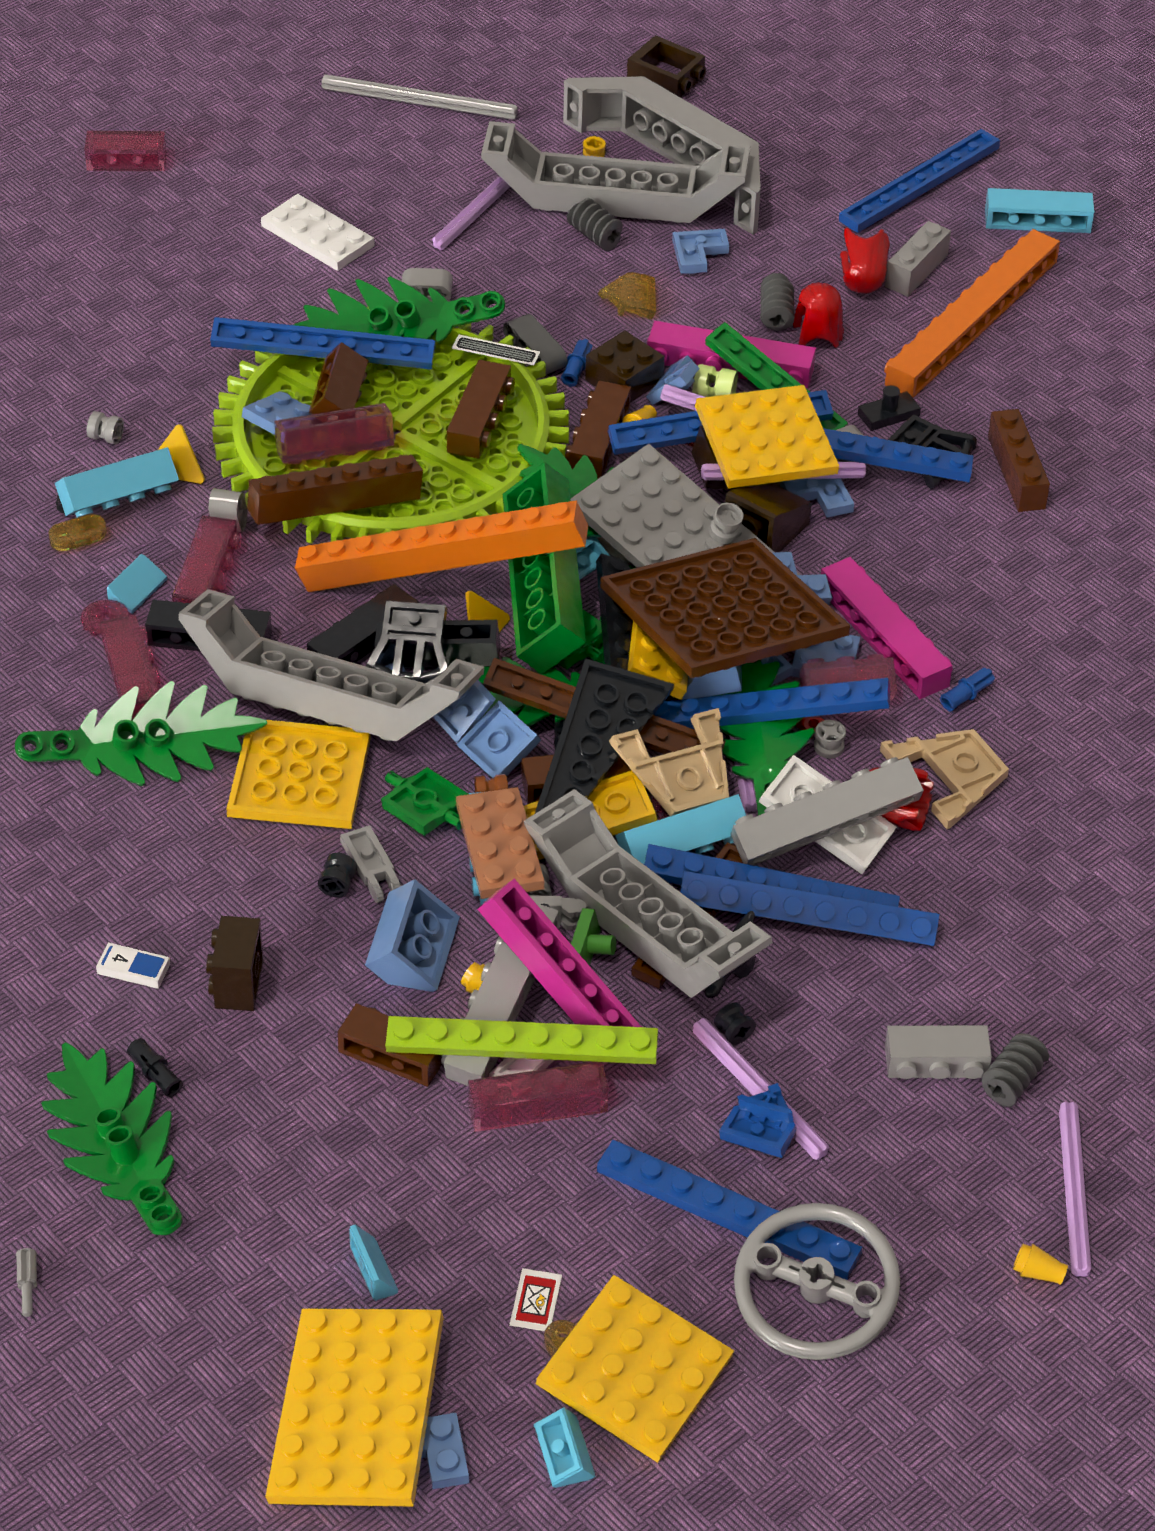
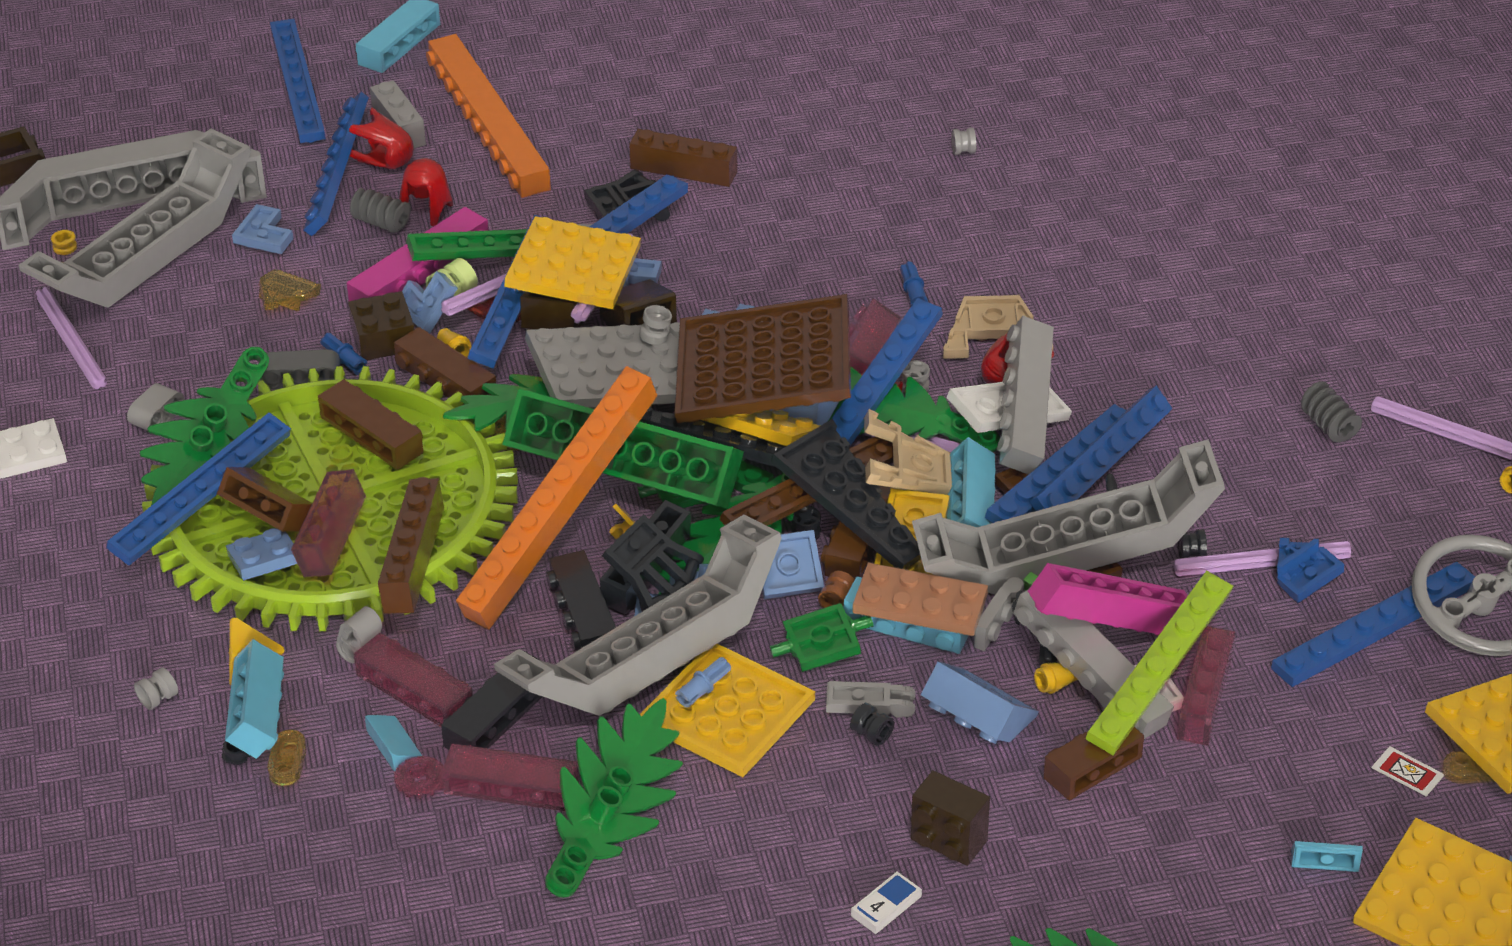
camera: 60 degrees left, 5 degrees down
(155, 1067) = (1002, 928): black pin -> none
(304, 739) = (702, 682): none -> medium blue axle
(496, 350) = (300, 387): sticker -> none
(596, 224) = (176, 273): dark grey piece -> none
(812, 251) = (335, 164): none -> blue plate
(887, 628) = (858, 289): dark pink brick -> none
(889, 410) = (559, 201): black tile -> none
(937, 1051) = (1287, 446): light grey brick -> none

